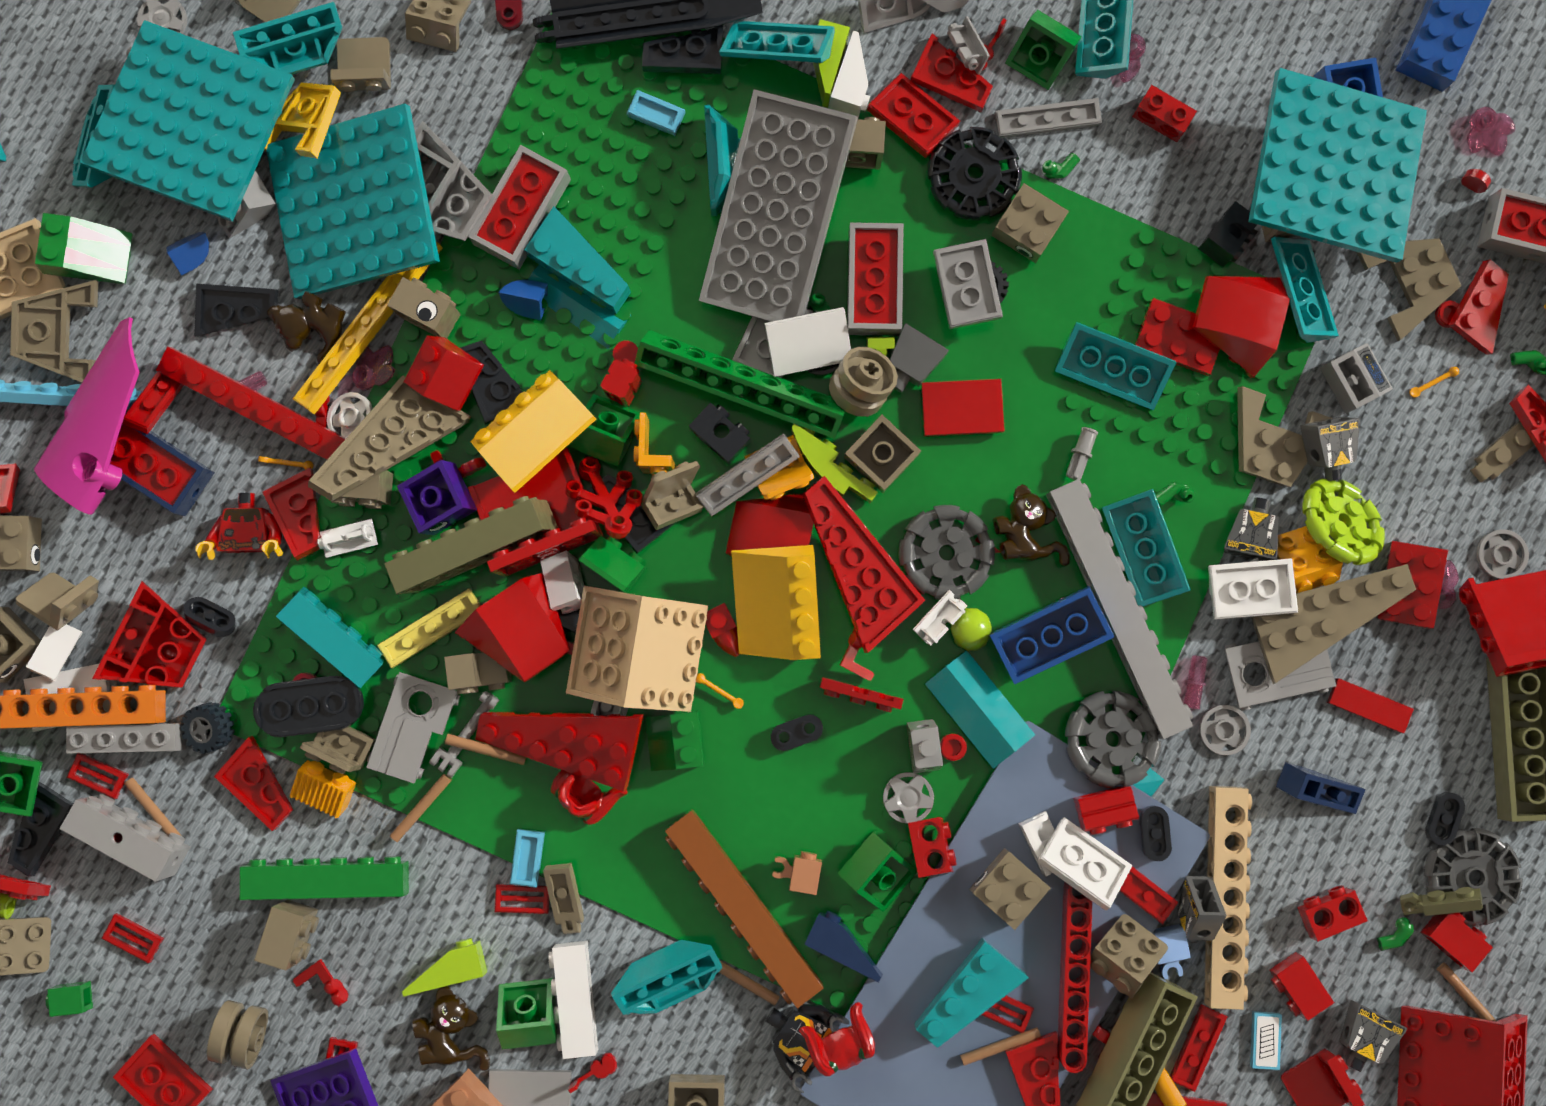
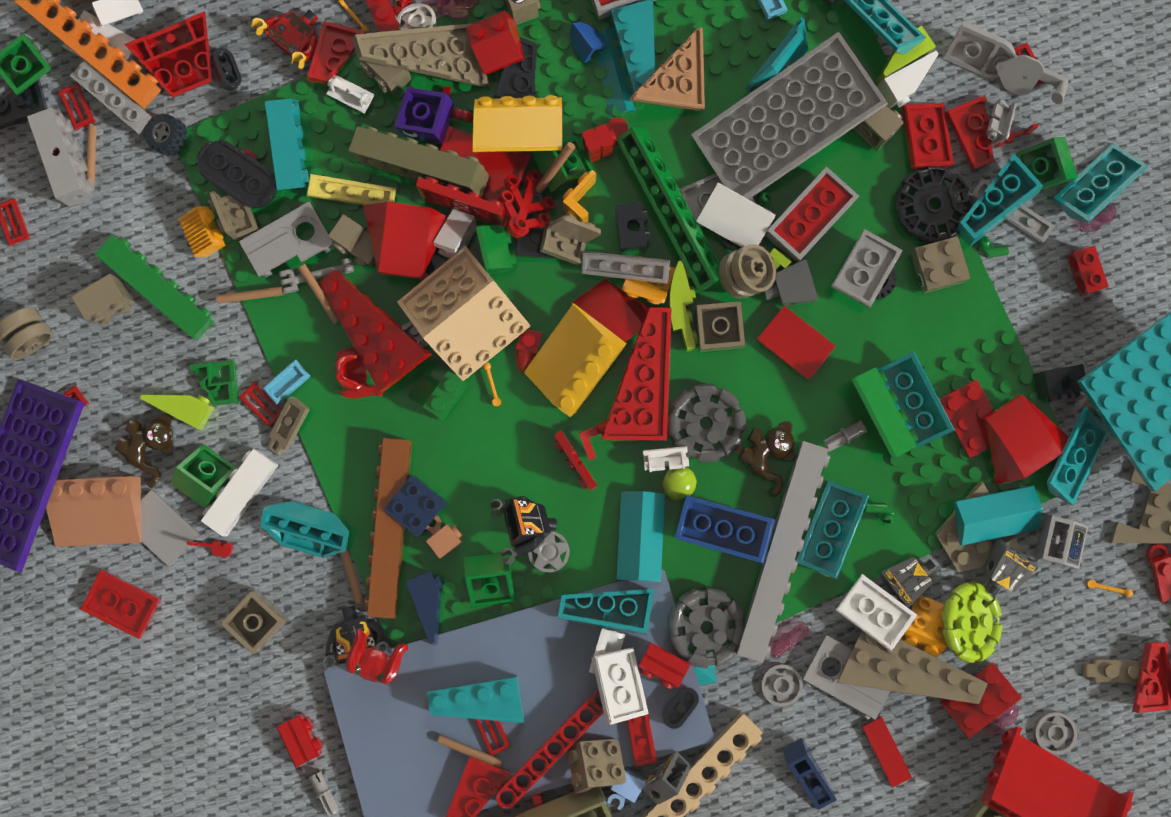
camera: 45 degrees right, 0 degrees up
(255, 785) = (164, 194): red wing -> none
(331, 986) = (103, 354): red piece -> none
(471, 919) = (221, 389): none -> green slope
(602, 440) = (548, 176): none -> medium nougat bar
(642, 259) = (679, 79): none -> medium nougat tile
(750, 866) = (415, 505): none -> dark blue bracket
(796, 732) = (515, 452): black plate -> none
(867, 792) = (525, 524): none -> black torso
(924, 746) = (585, 528): light grey torso -> none
(924, 849) = (529, 590): red brick -> none
(953, 747) = (603, 545): red tile -> none
(1009, 888) = (560, 660): dark tan brick -> none
(1021, 796) = (613, 610): none -> teal wedge
(1031, 110) = (1003, 197): none -> teal wedge
(1099, 400) = (884, 413): none -> green slope
(1281, 403) = (998, 515): none -> teal slope

